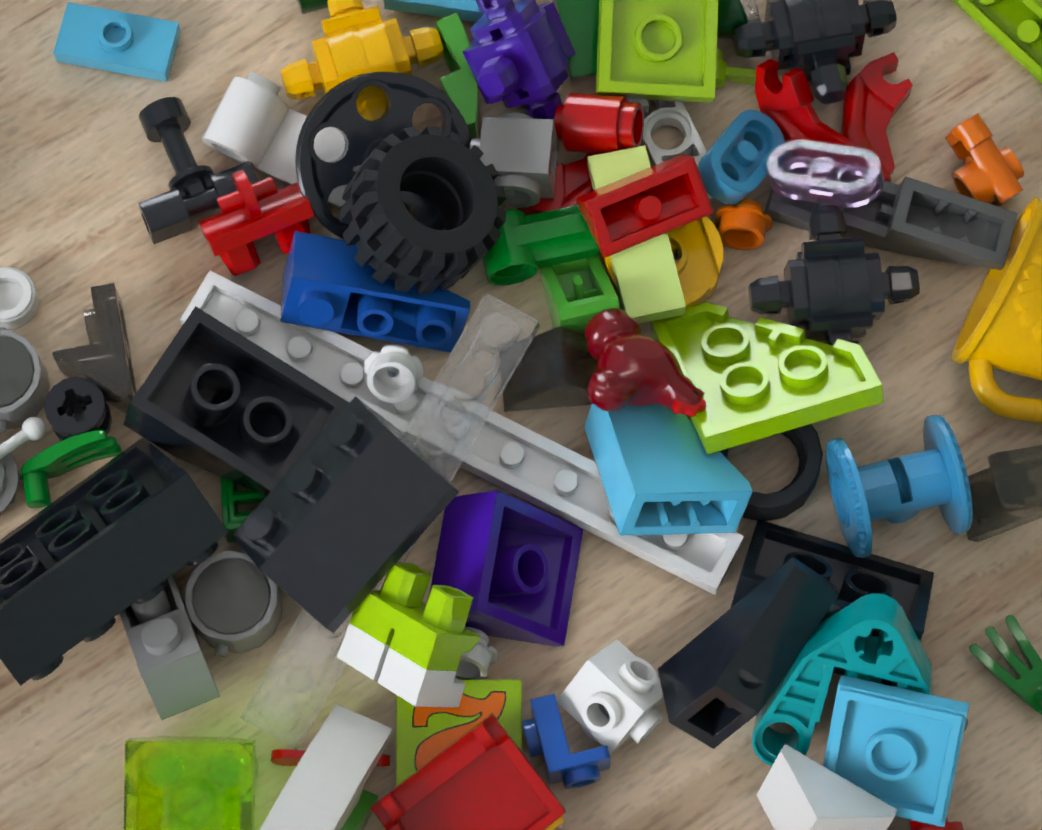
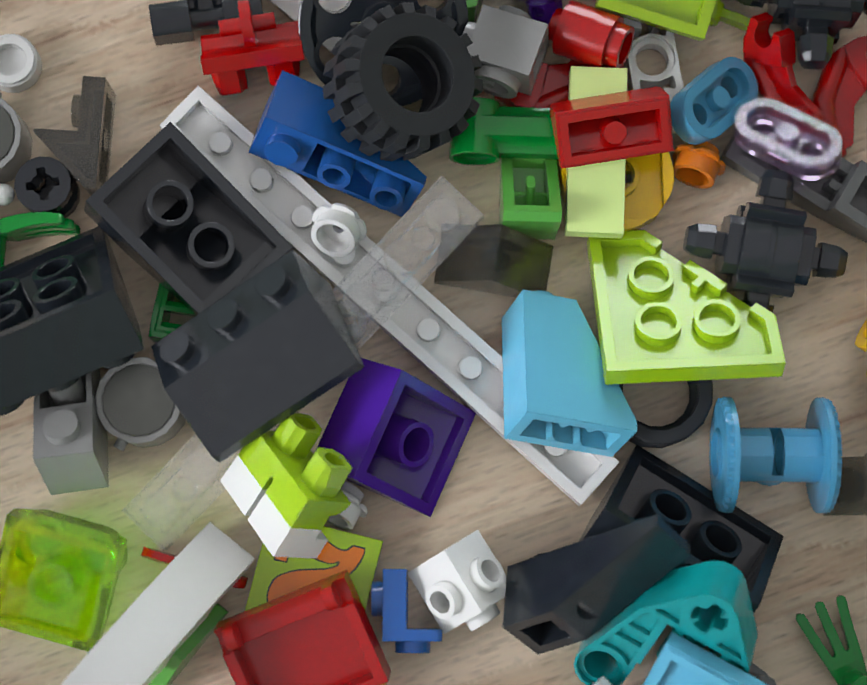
camera: 10 degrees right, 10 degrees up
(635, 368) = (560, 286): dark red animal -> none

